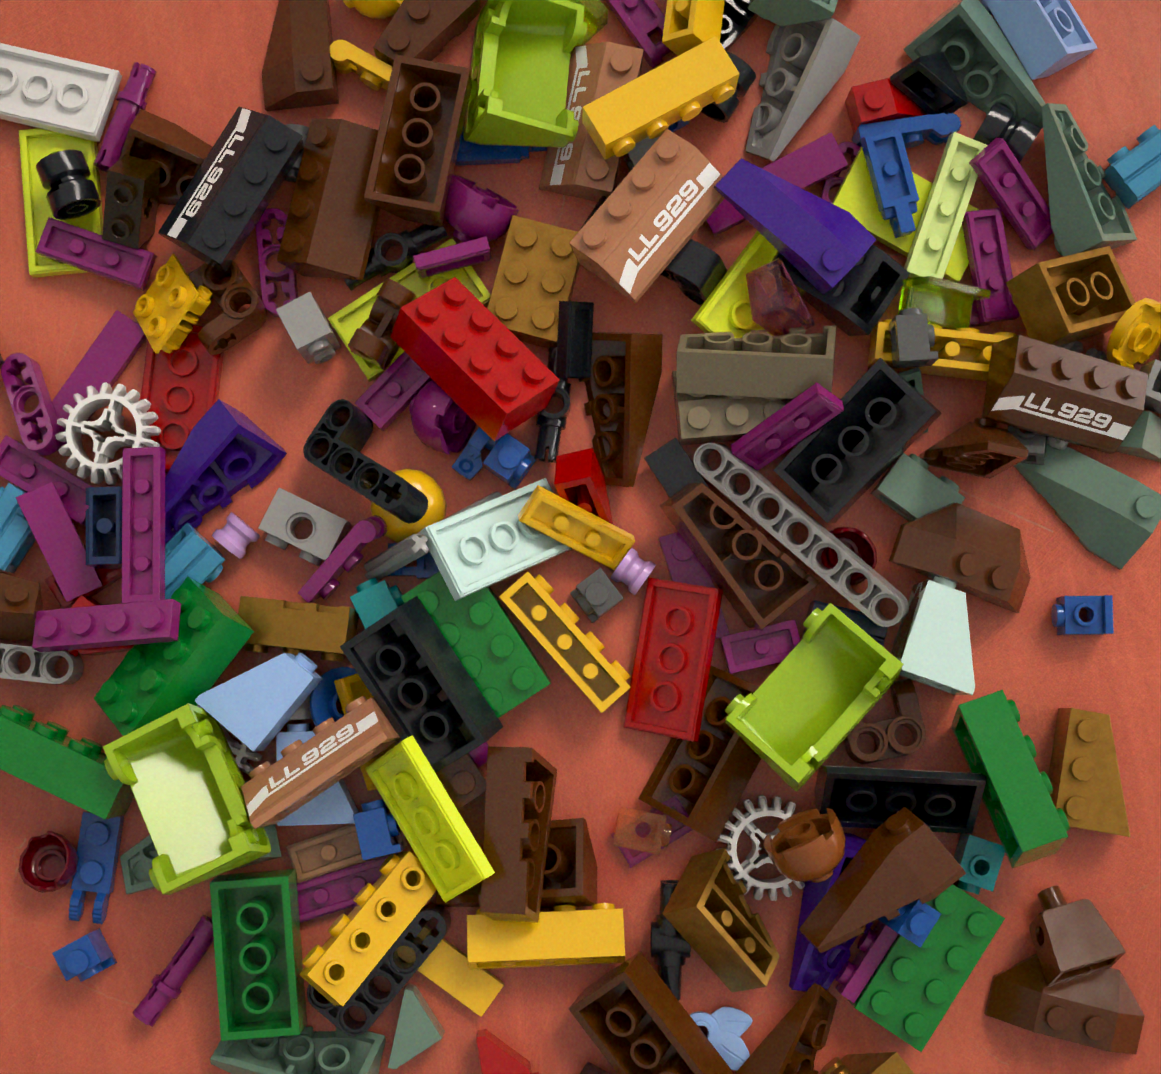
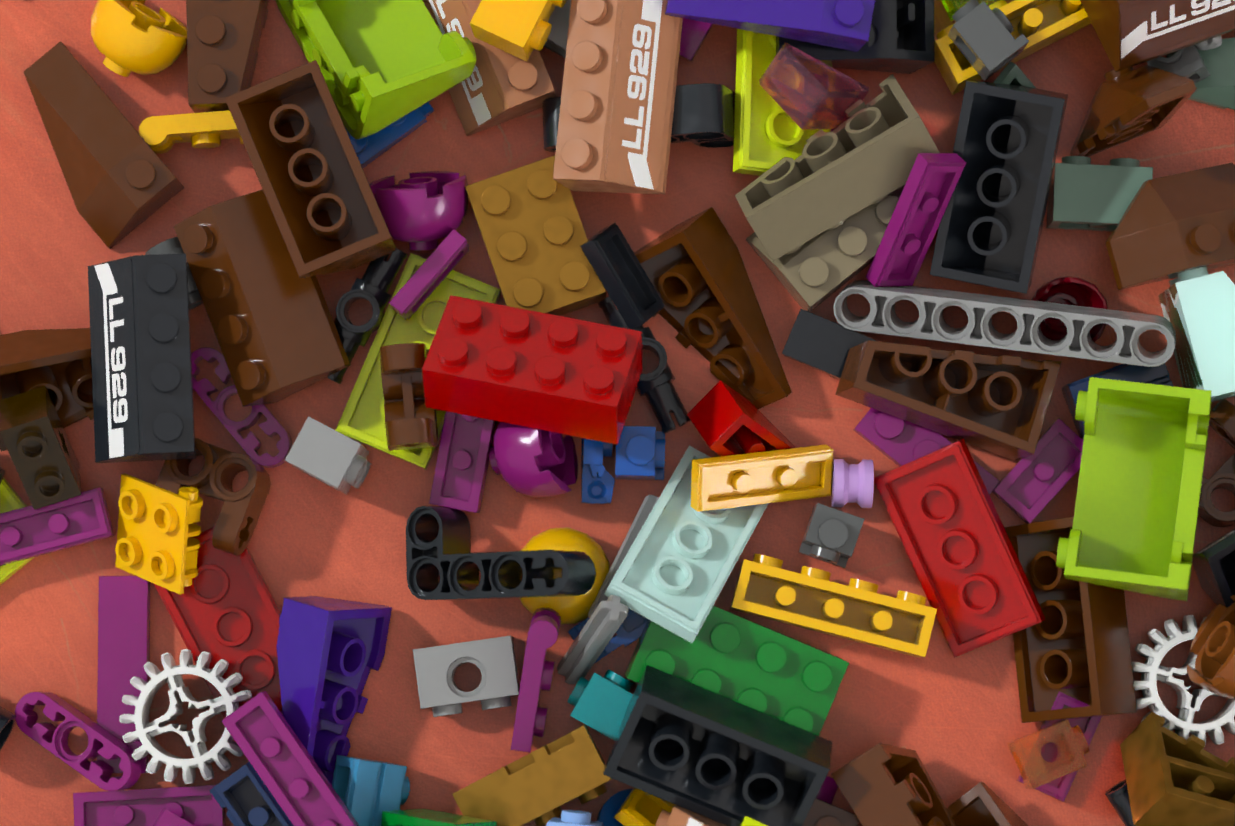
camera: 30 degrees left, 0 degrees up
(235, 535) = (398, 733): lavender wheel -> none

